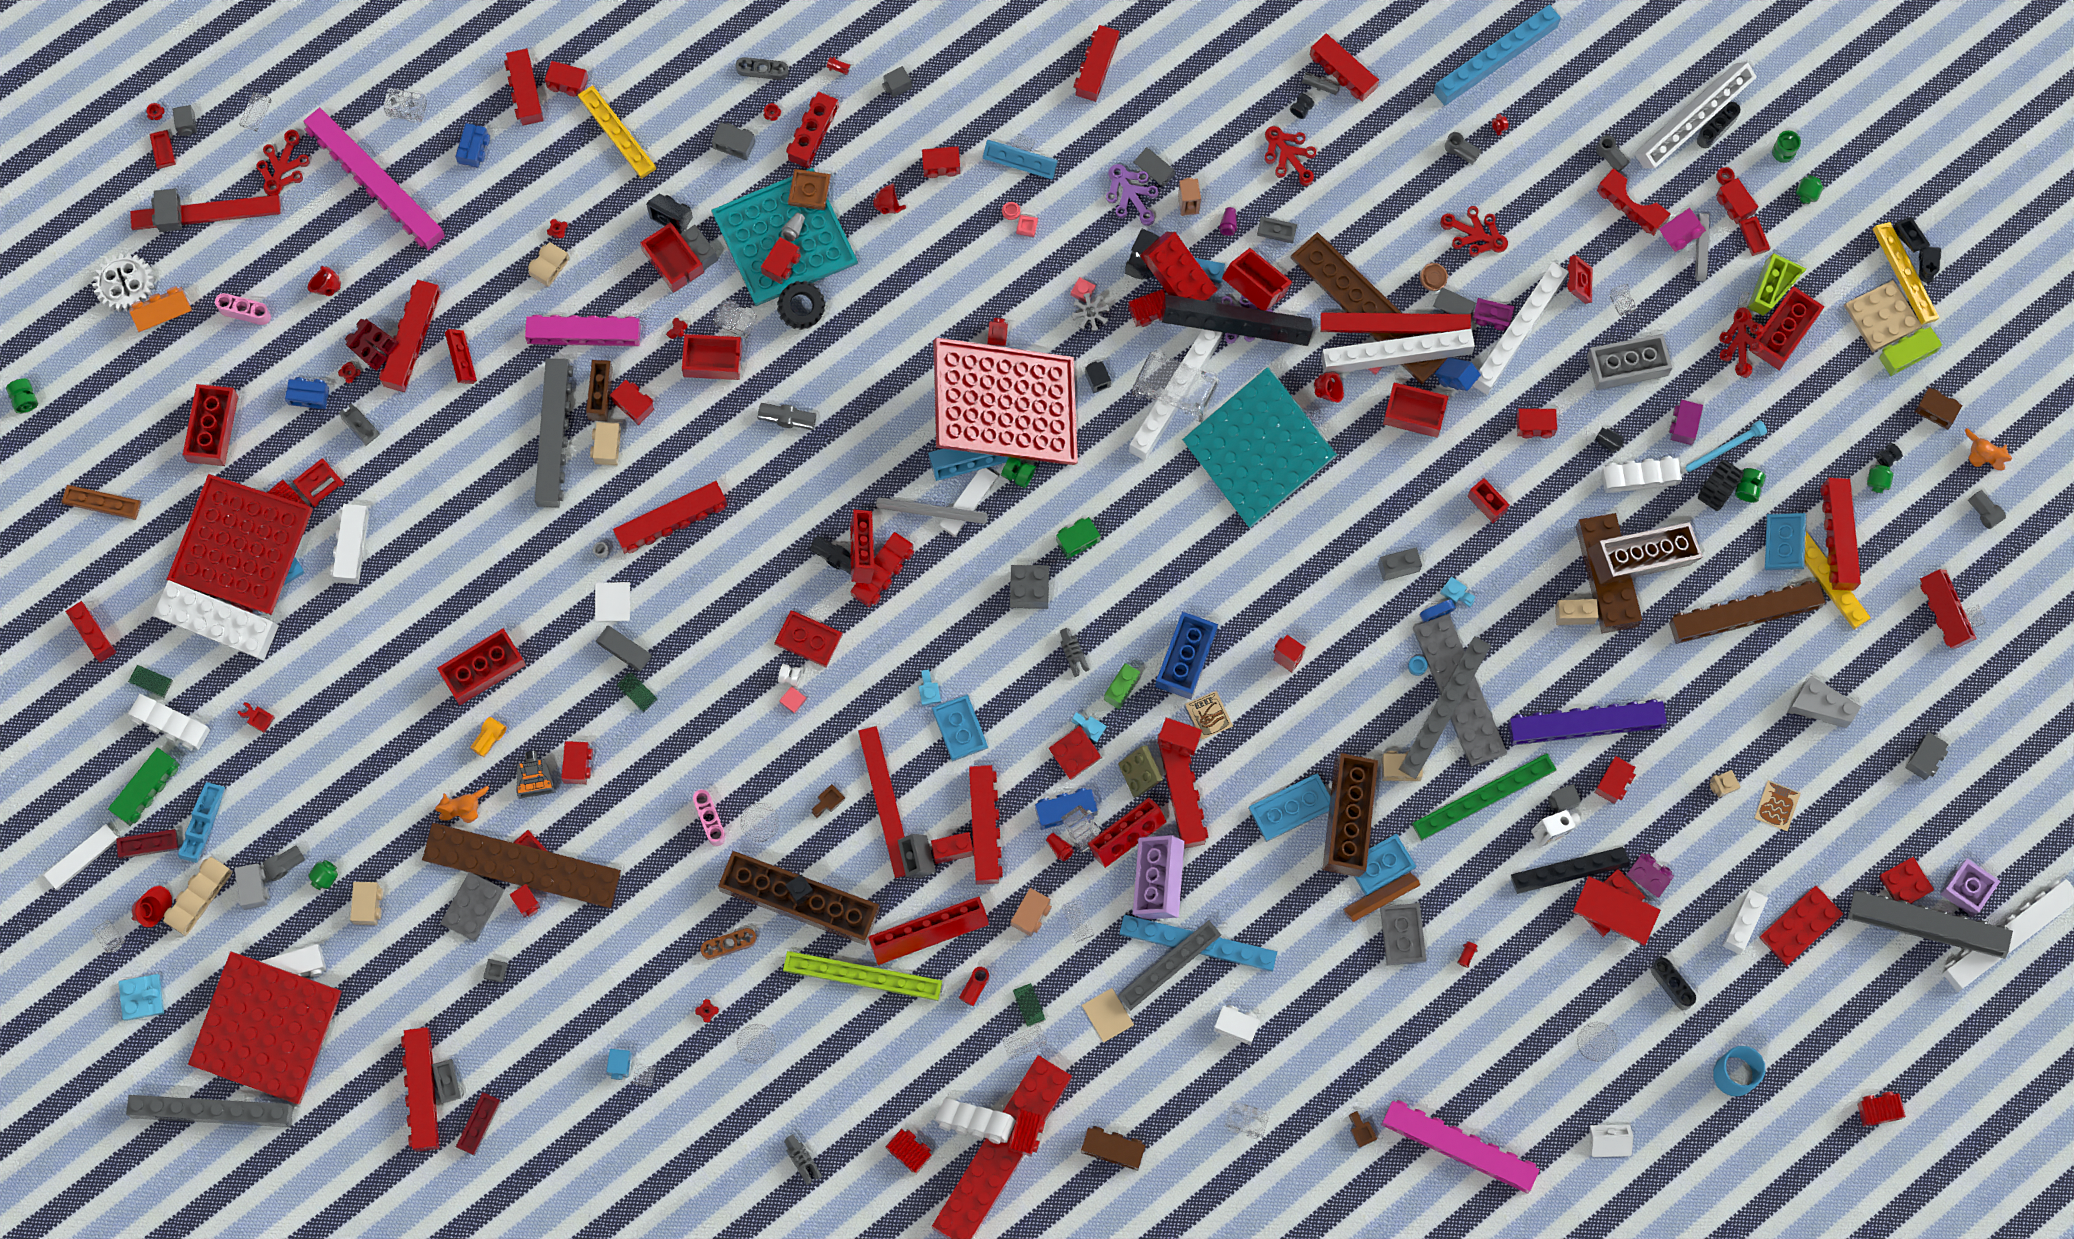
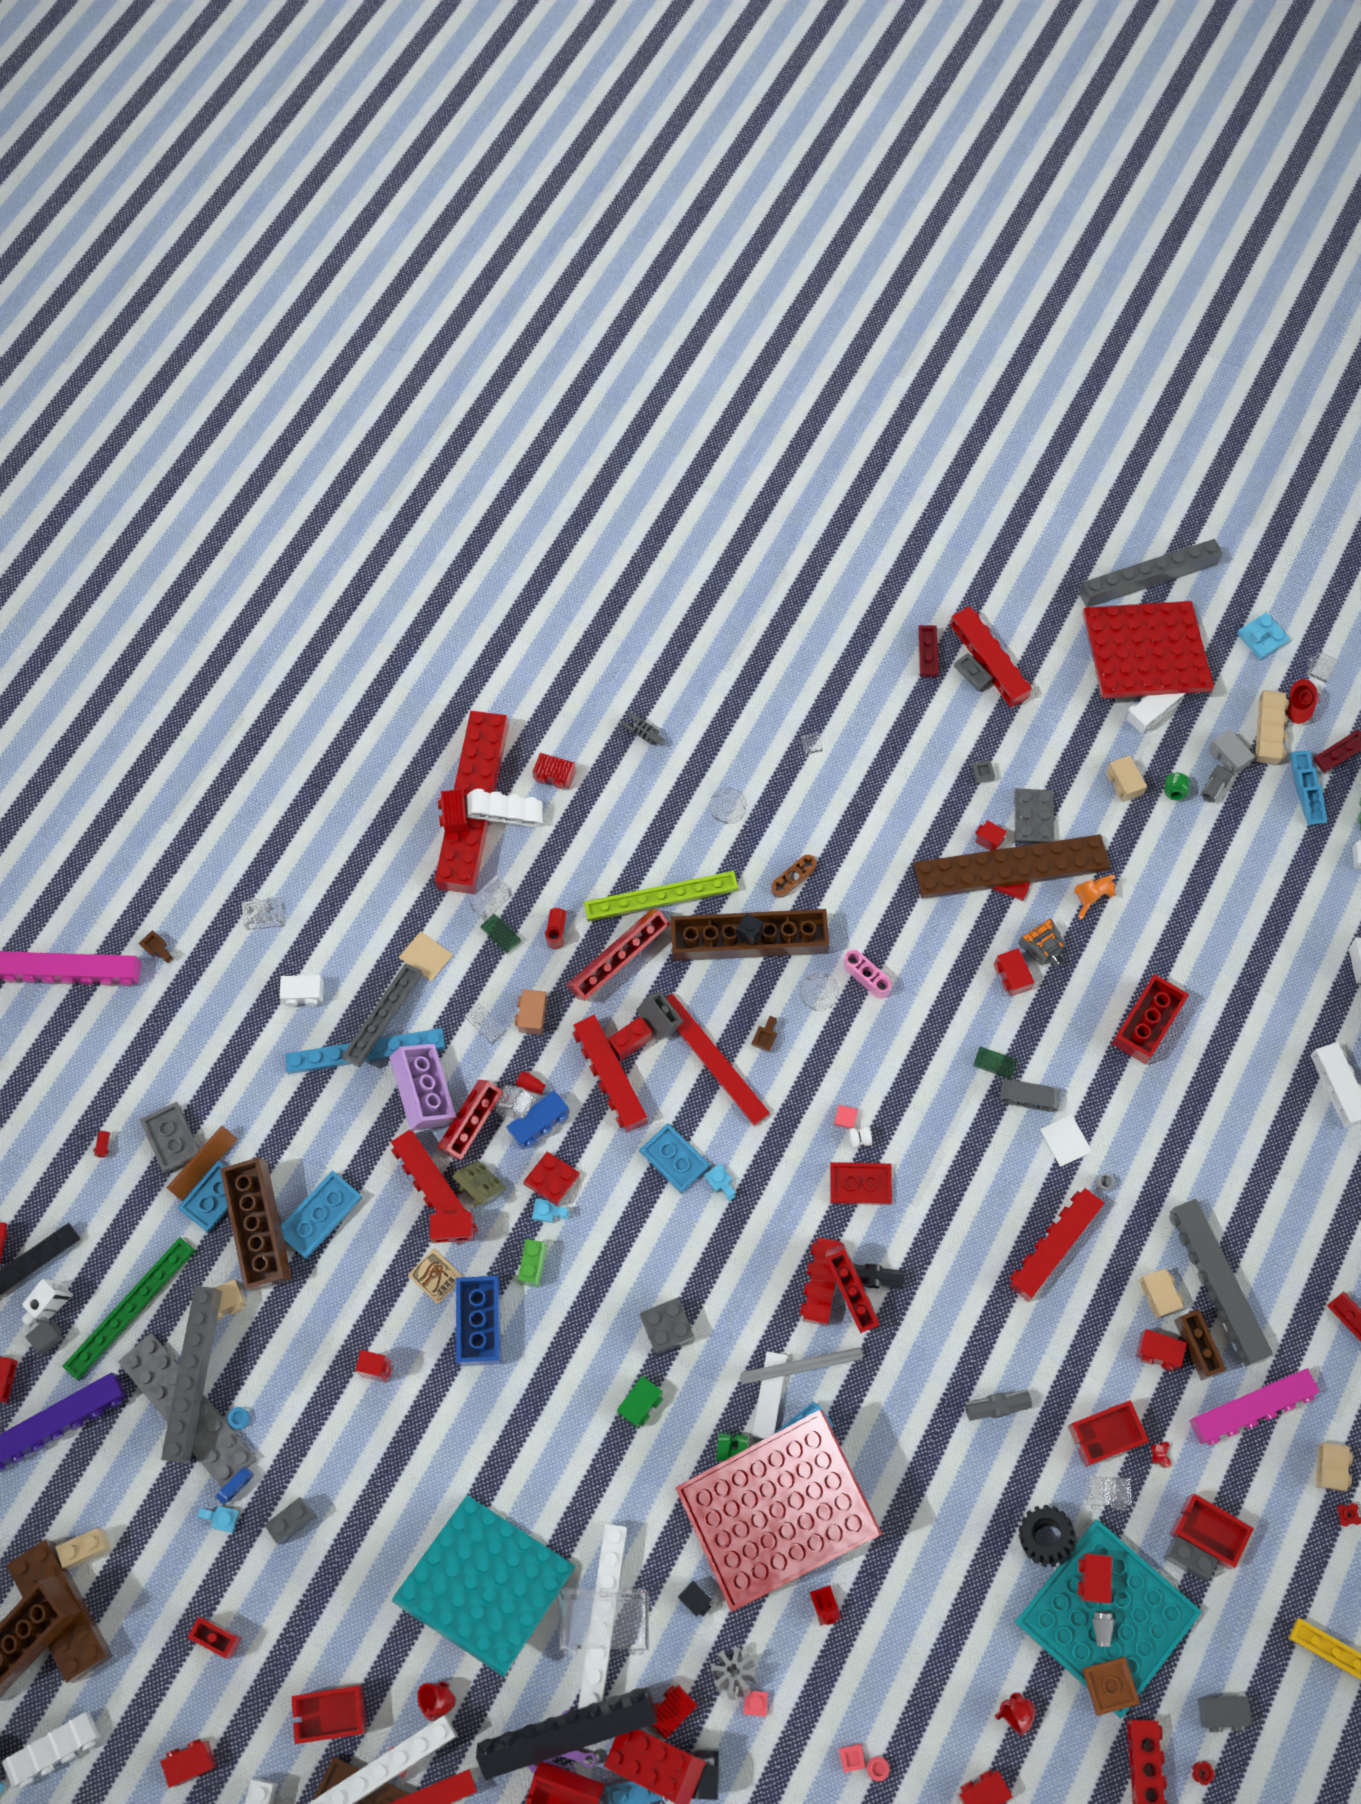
camera: 160 degrees right, 5 degrees down
(258, 718) = (1319, 893): red plate -> none
(490, 733) = (1106, 966): light orange piece -> none
(618, 1064) = (837, 740): dark azure brick -> none
(665, 210) = (1243, 1586): black slope -> none
(713, 1010) = (784, 818): red plate -> none
(1073, 651) = (595, 1279): dark grey hinge -> none
(1113, 1148) = (375, 842): reddish brown brick -> none
(1457, 374) = (294, 1780): blue brick -> none
(1609, 440) = (98, 1779): black brick -> none

